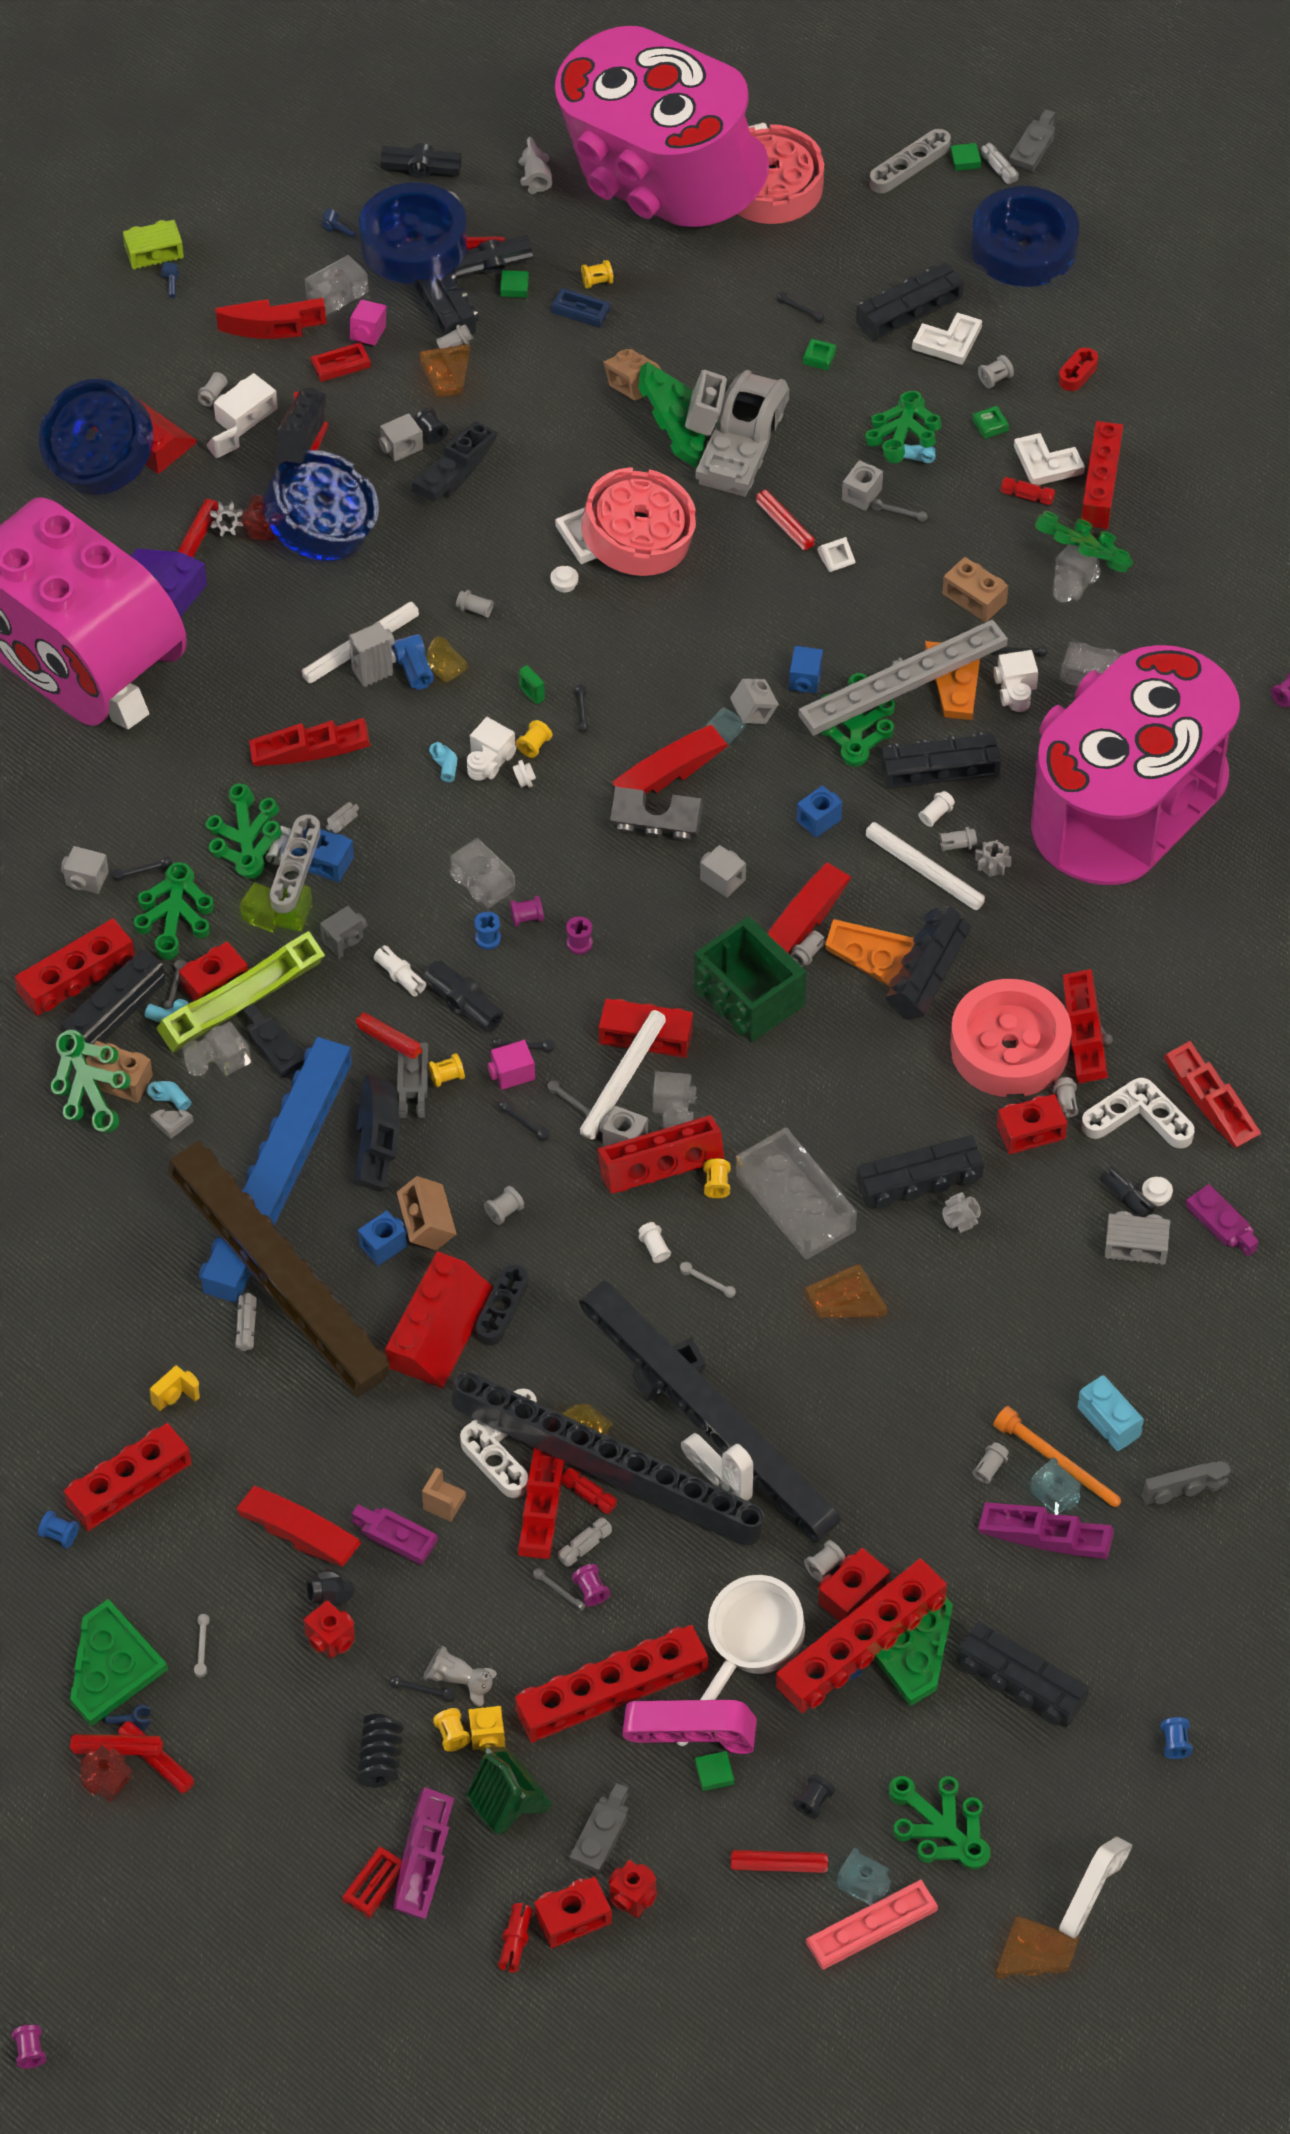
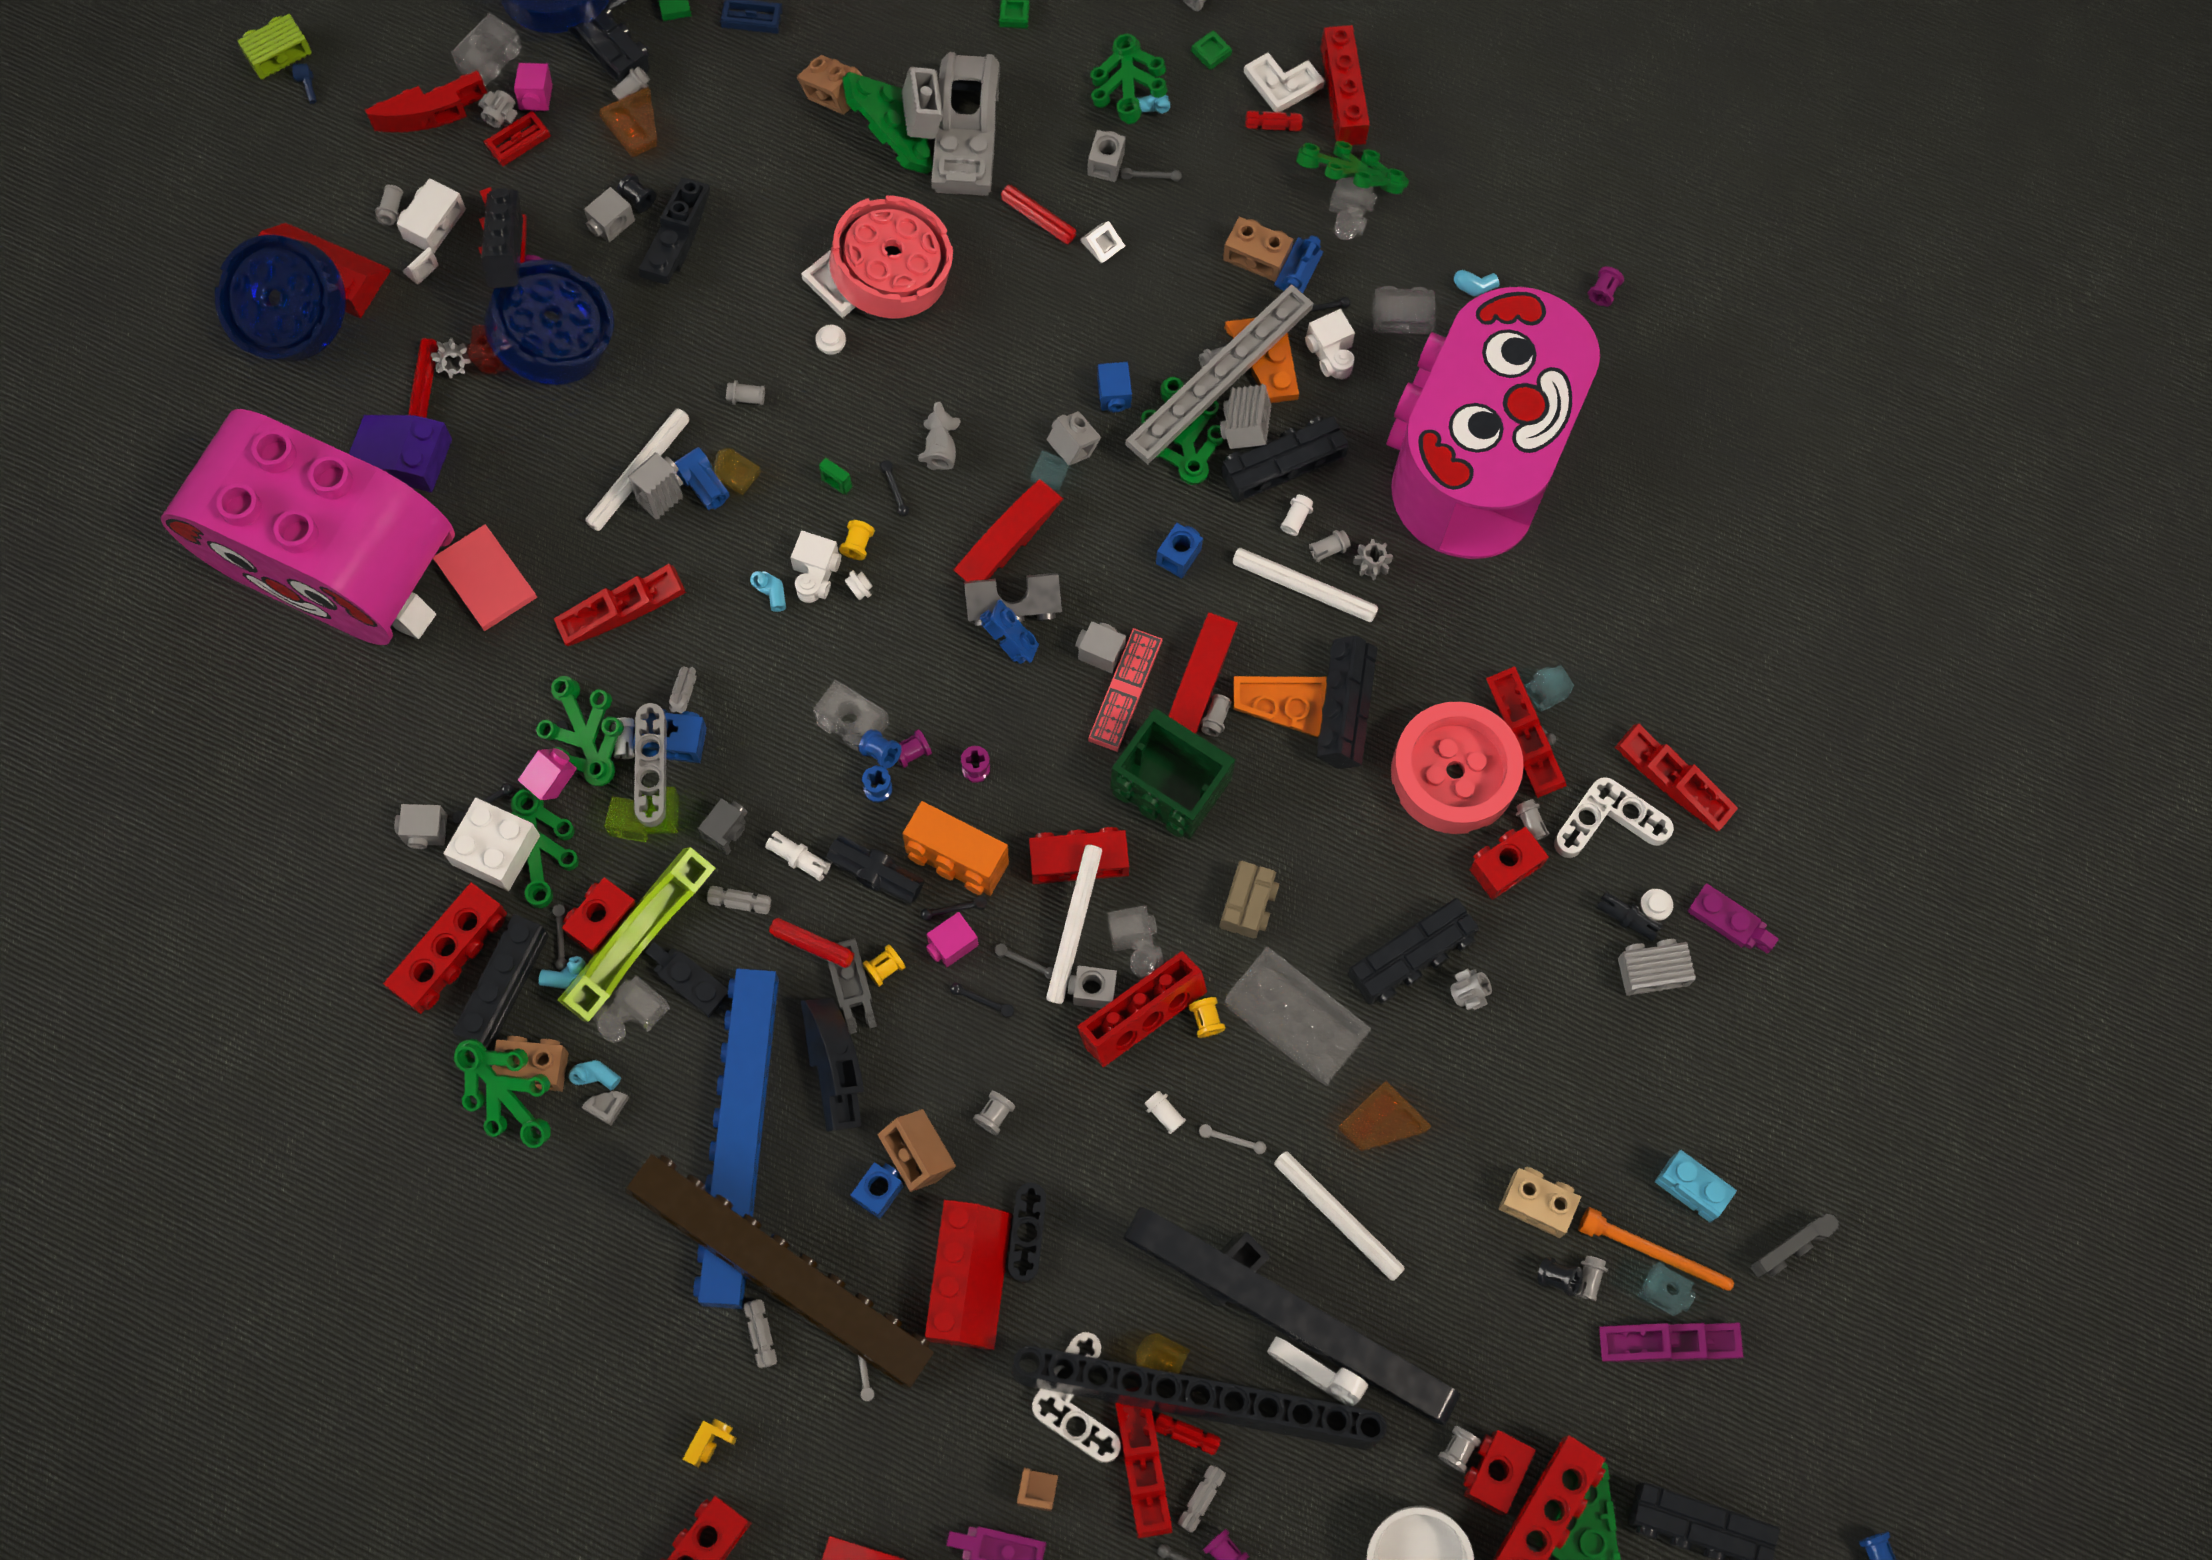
camera: 20 degrees left, 15 degrees up
(140, 894) = (492, 844): none -> white brick
(200, 696) = (484, 577): none -> coral tile
(205, 854) = (547, 773): none -> brick
(322, 1391) = (867, 1393): none -> light grey hinge
(331, 333) = (497, 108): none -> light grey gear
(337, 992) = (739, 900): none -> light grey axle
(494, 896) = (875, 746): none -> blue bush
(538, 991) = (955, 849): none -> orange brick
(633, 680) = (940, 446): none -> light grey animal
(640, 826) = (1019, 642): none -> blue hinge
(736, 906) = (1125, 690): none -> tile
(782, 1360) = (1339, 1216): none -> white axle
(786, 1096) = (1248, 899): none -> dark tan brick
(916, 717) = (1246, 417): none -> light grey brick
(960, 1454) = (1560, 1276): none -> black bush
(964, 1391) = (1540, 1201): none -> tan brick
(1011, 609) = (1300, 264): none -> blue hinge
(1116, 988) = (1549, 687): none -> clear light blue brick

